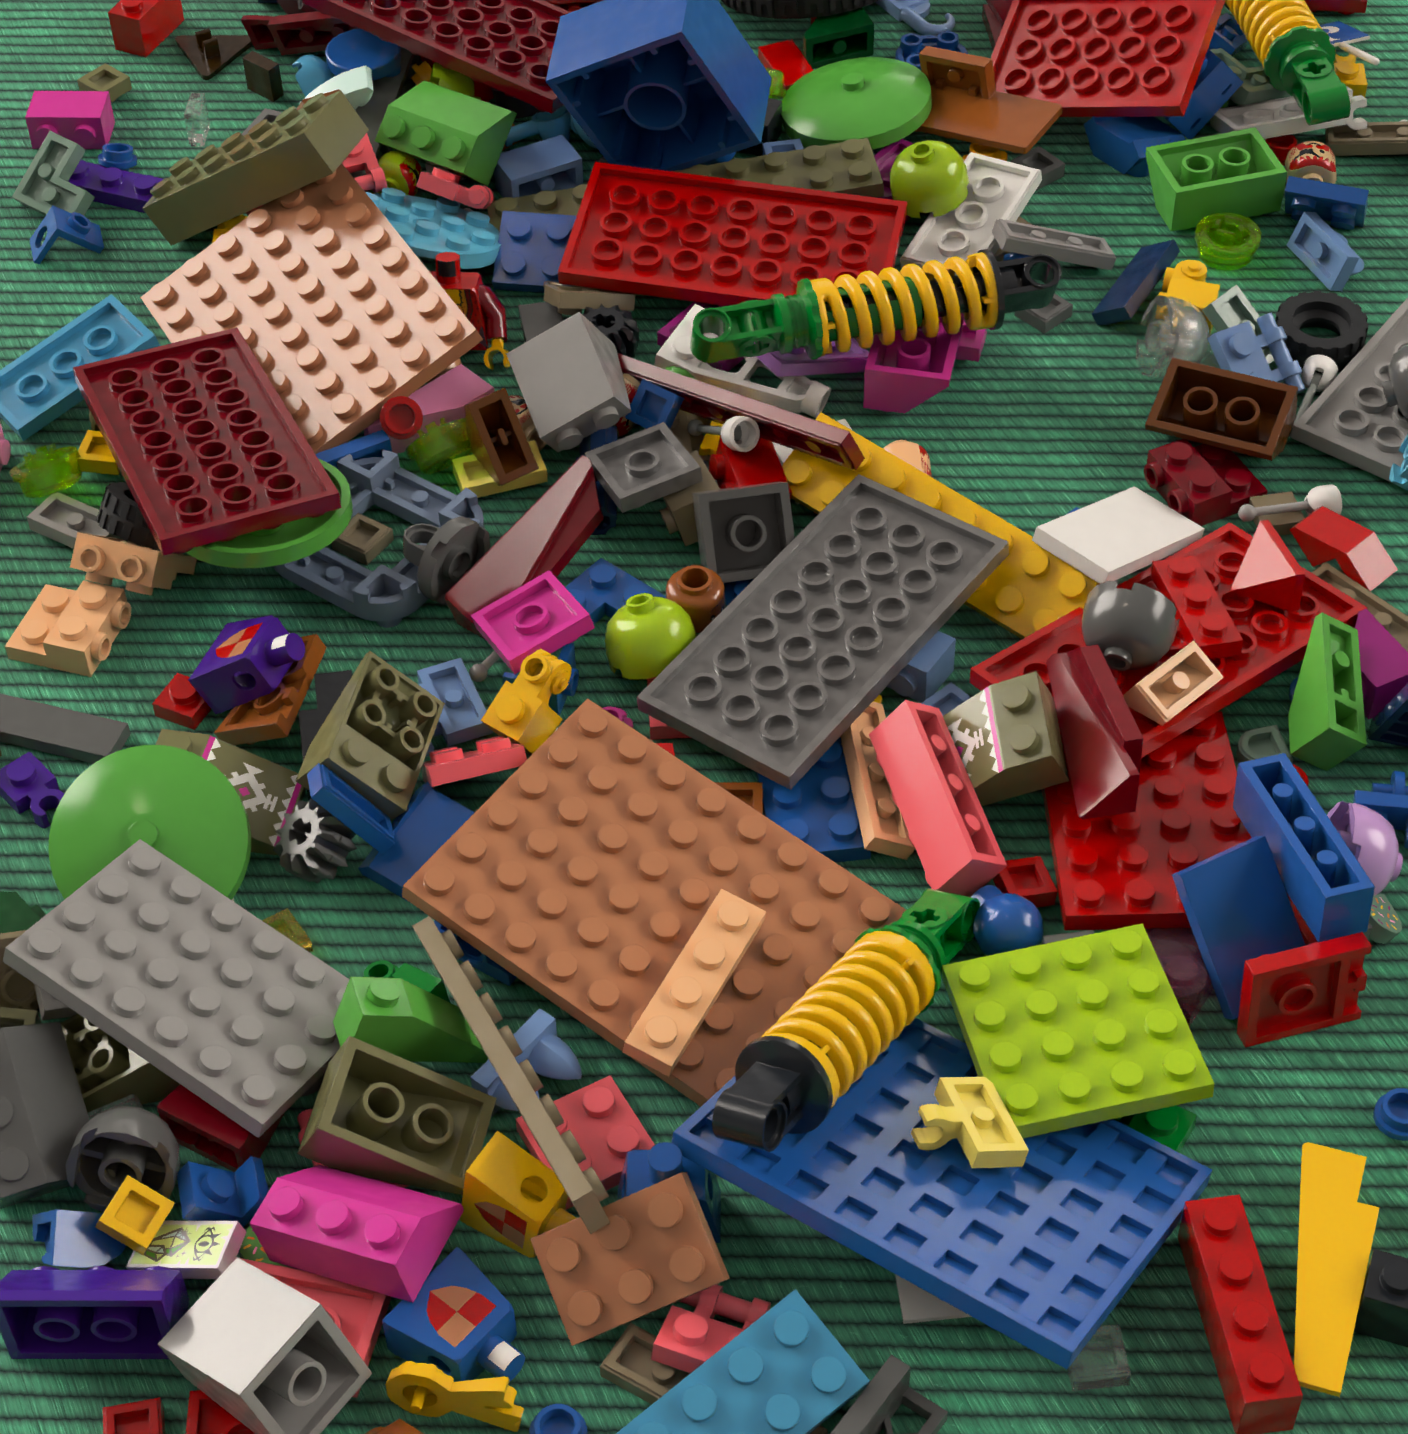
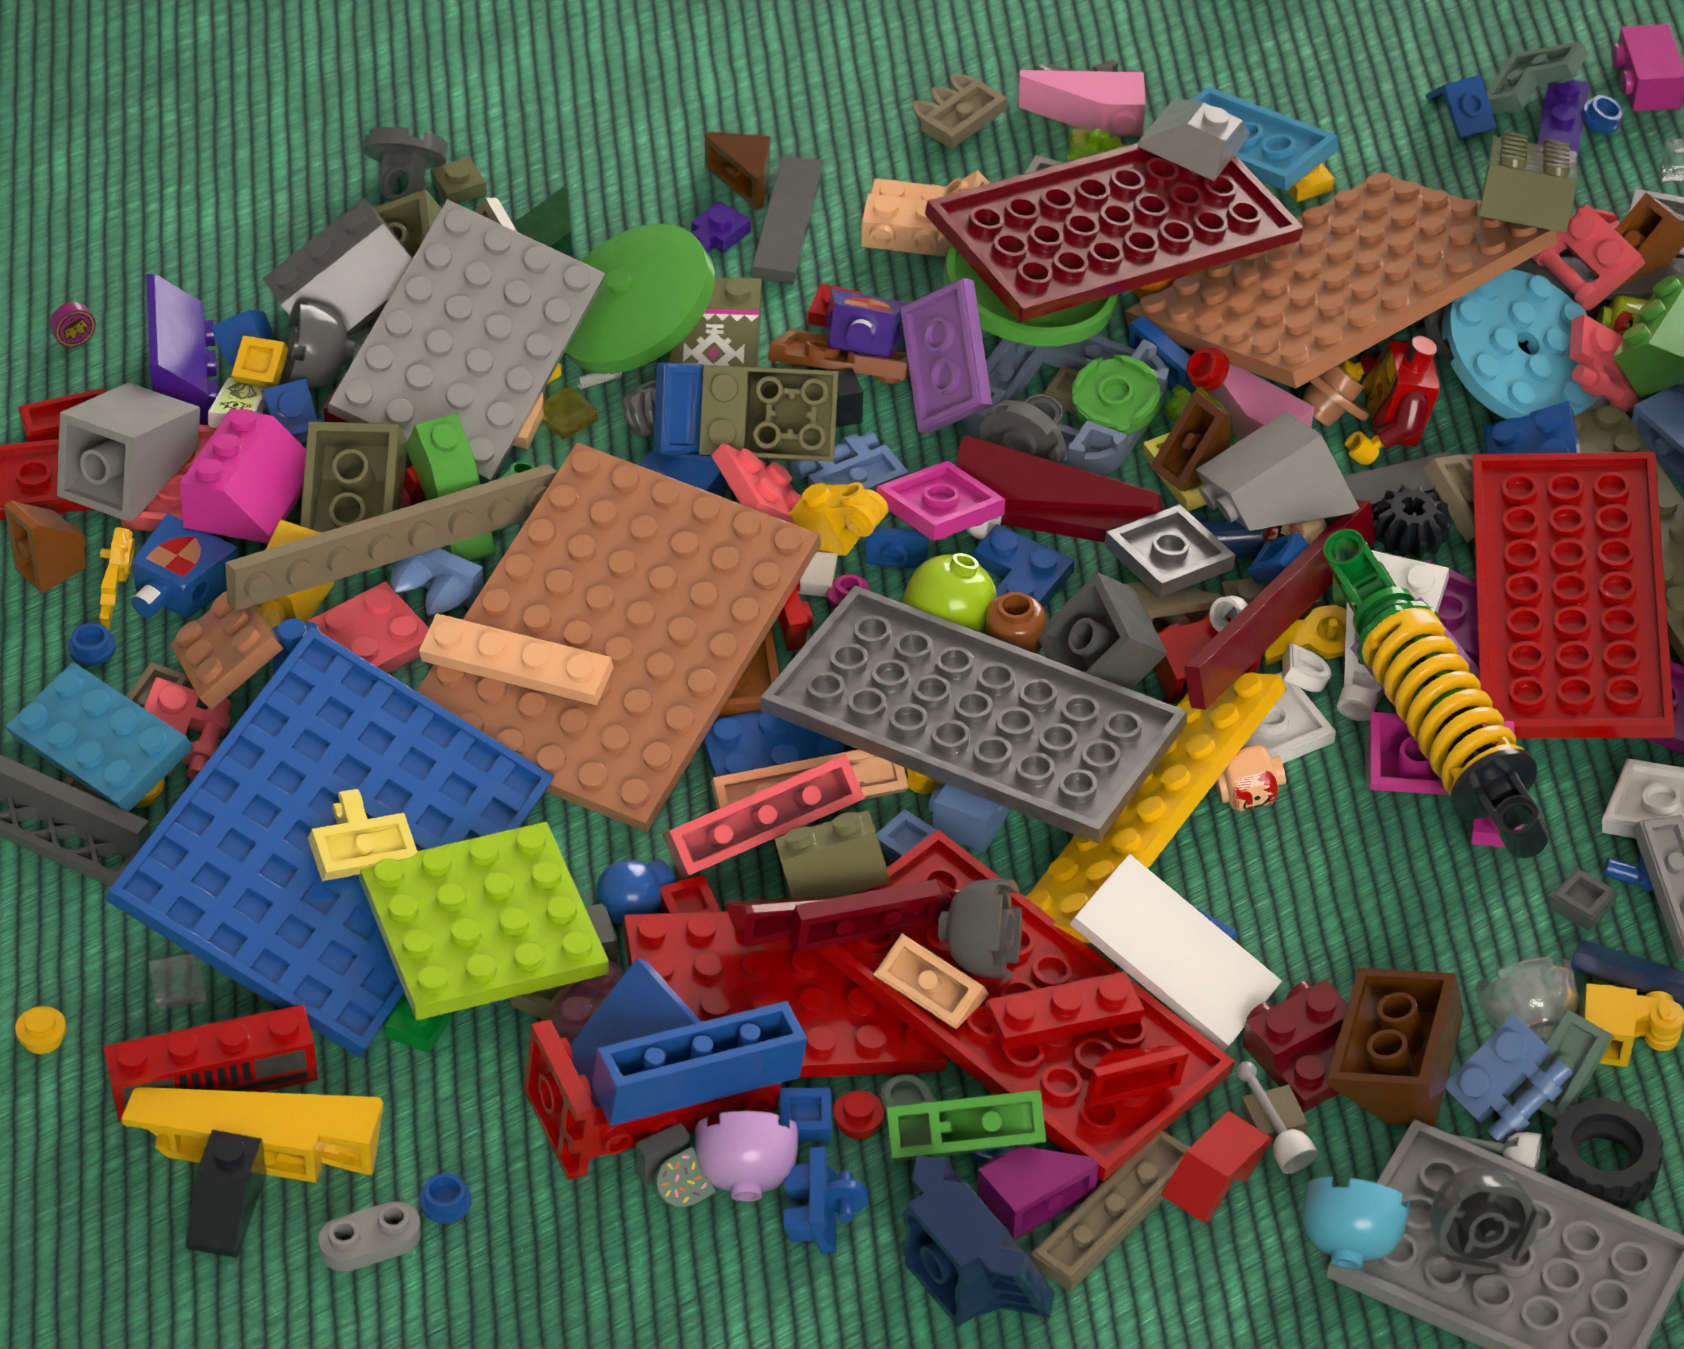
camera: 80 degrees right, 0 degrees up
(104, 362) = (1196, 136): none -> light grey slope
(336, 590) = (946, 356): none -> medium lavender tile
(407, 489) = (1116, 393): none -> bright green tile
(842, 1023) = (457, 743): piece -> none

